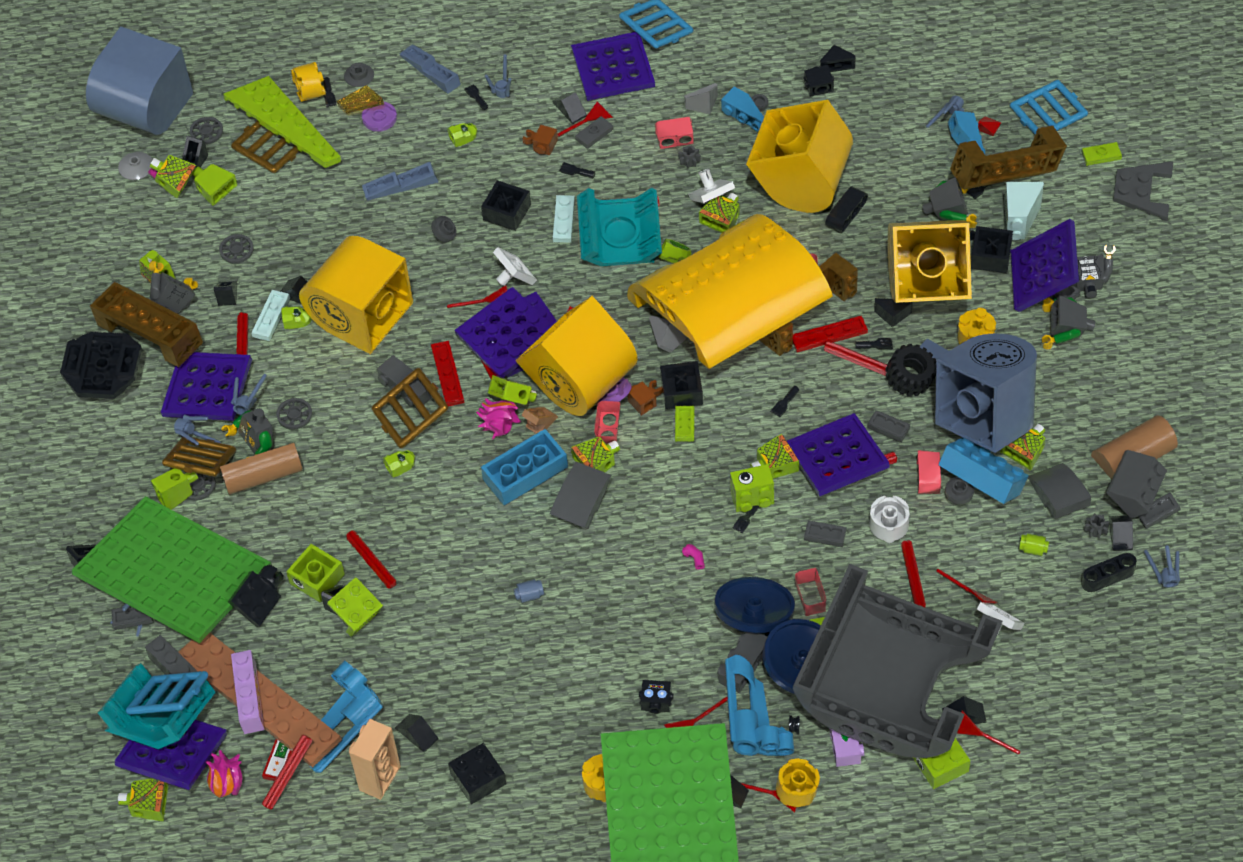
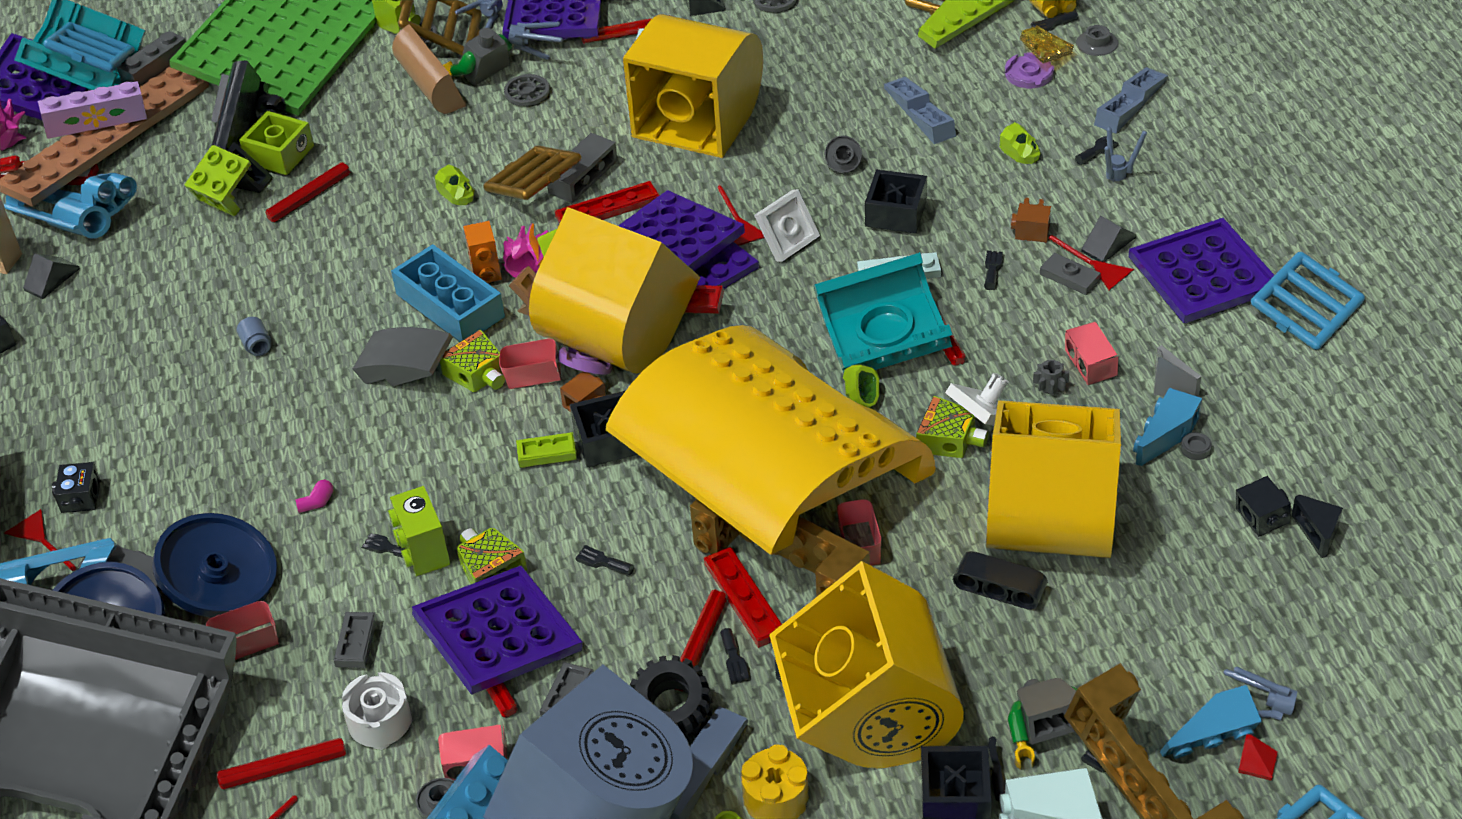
camera: 80 degrees right, 10 degrees down
(285, 593) = (237, 105): none -> black brick
(492, 440) = (482, 251): none -> orange brick

